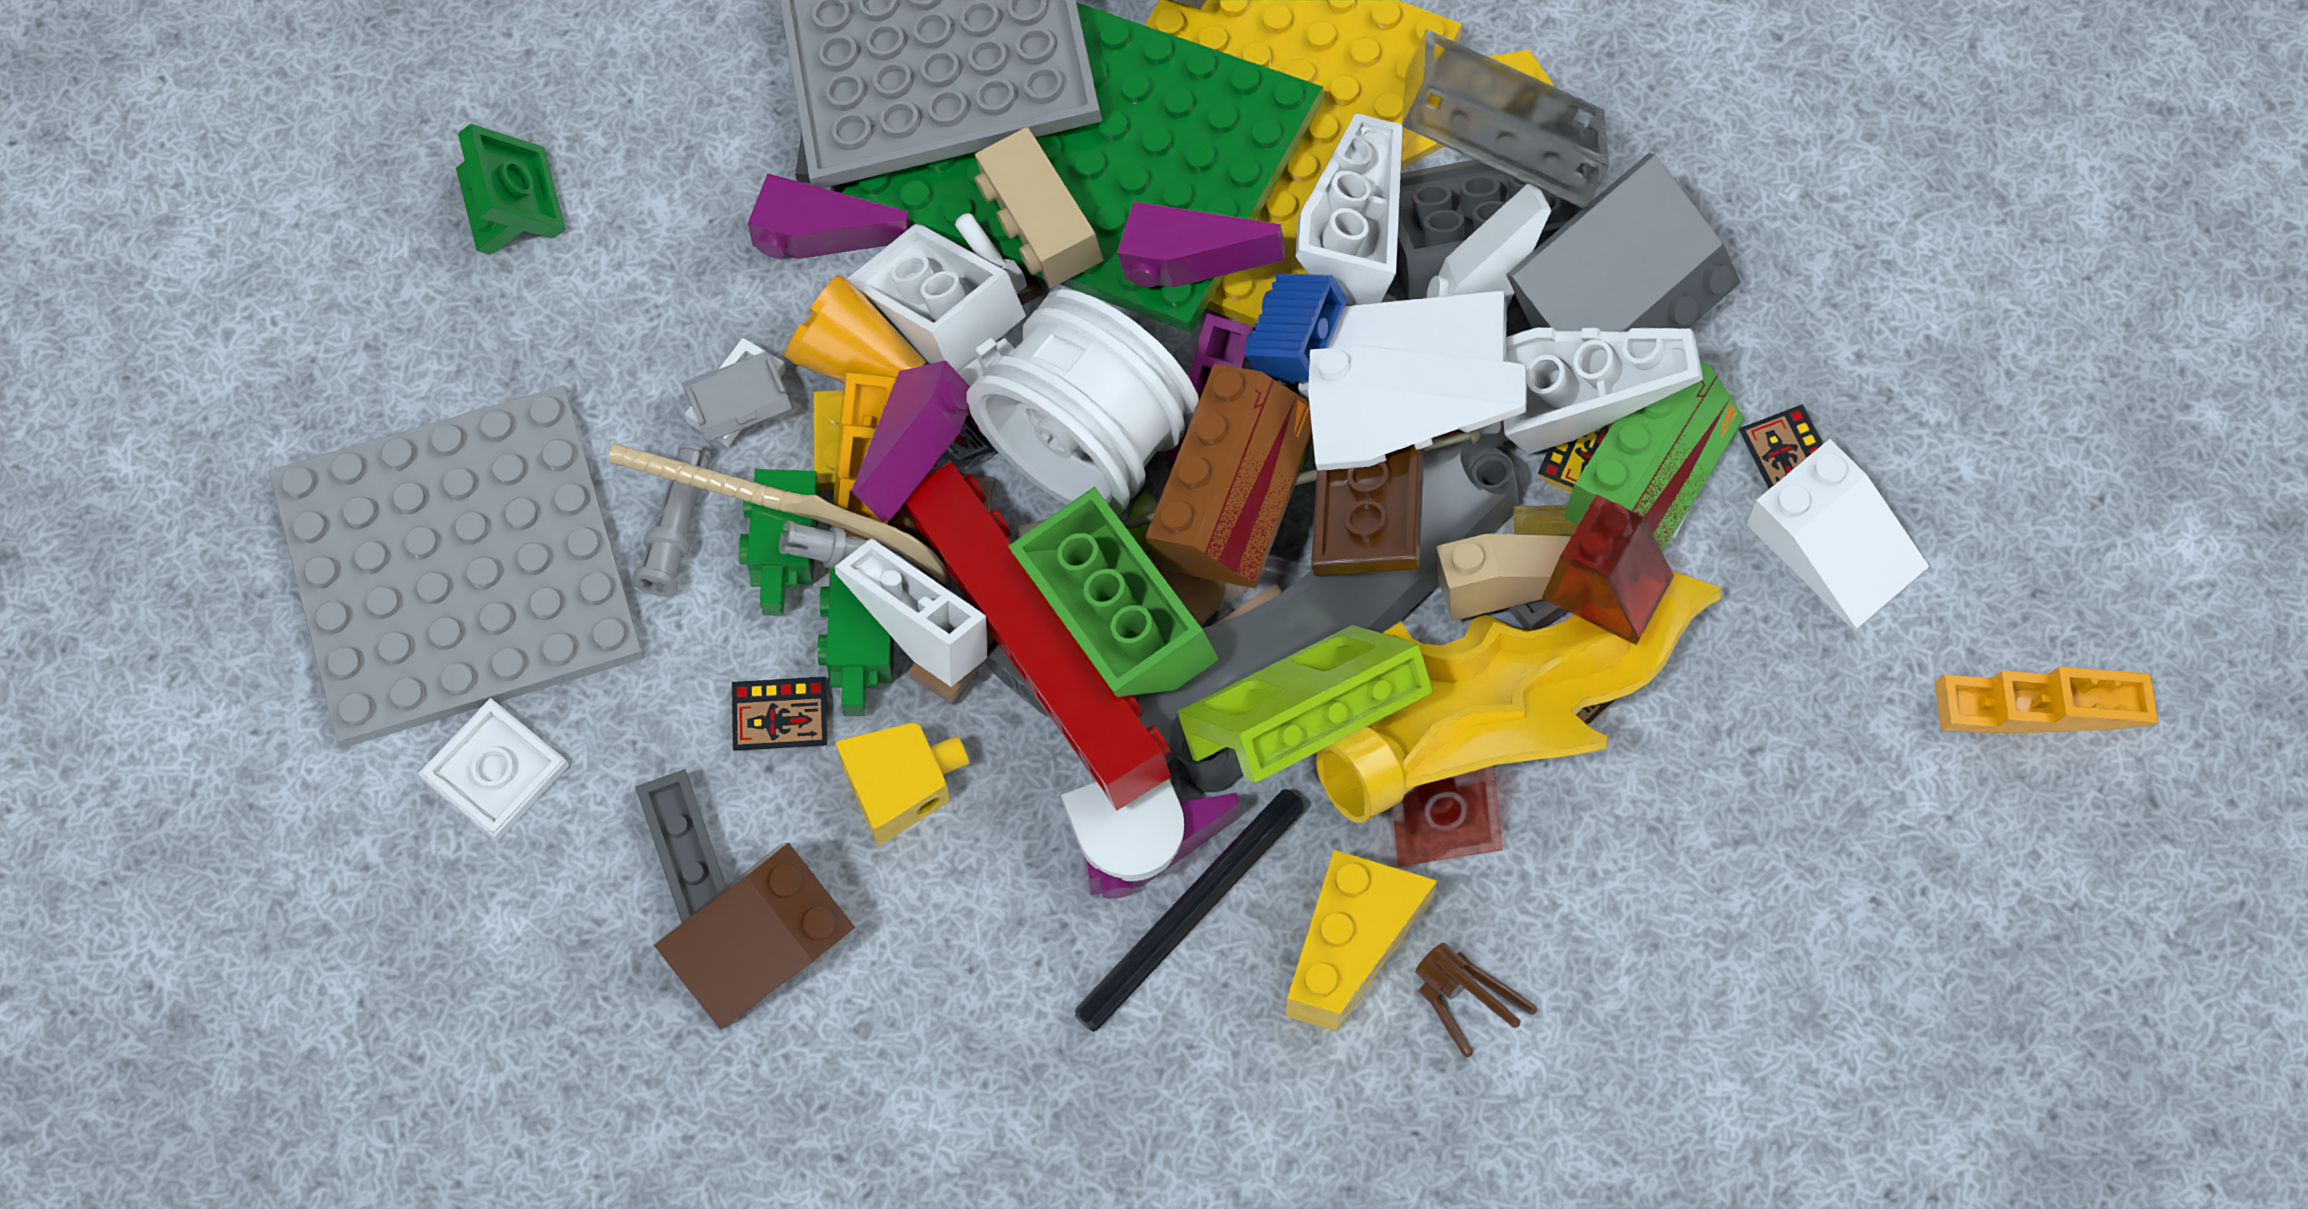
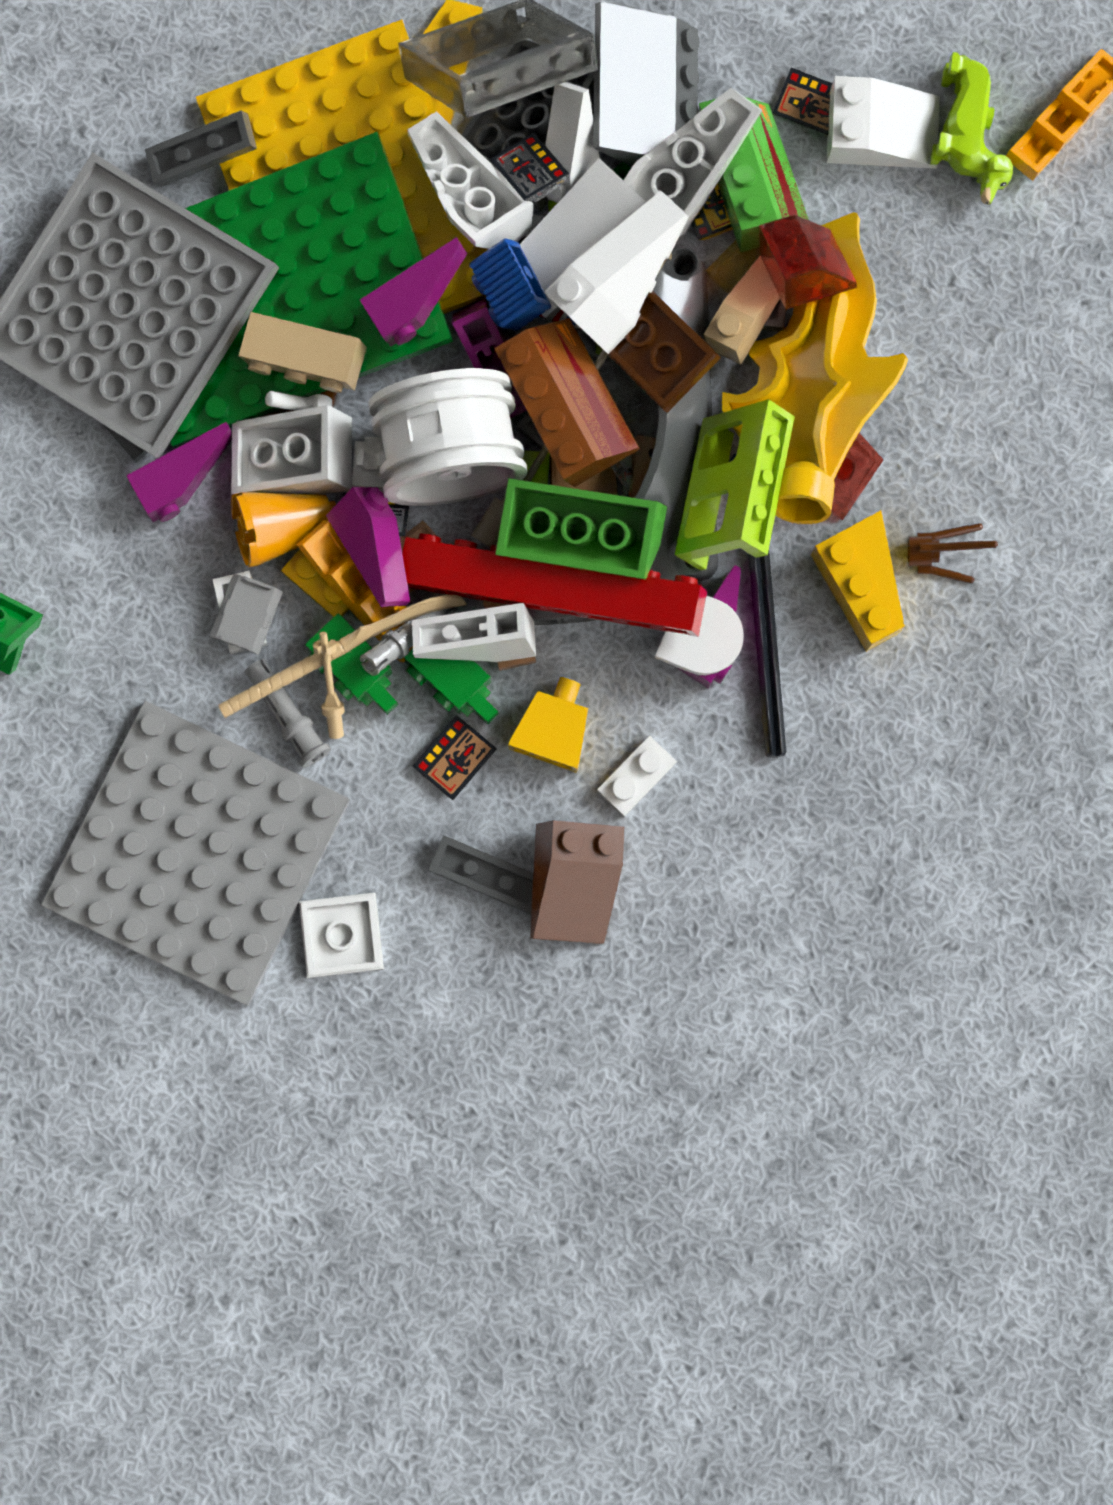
camera: 50 degrees left, 15 degrees up
(718, 553) = (332, 707): none -> tan piece
(928, 904) = (636, 776): none -> white plate
(1428, 244) = (530, 168): none -> piece
(1919, 613) = (963, 131): none -> lime animal

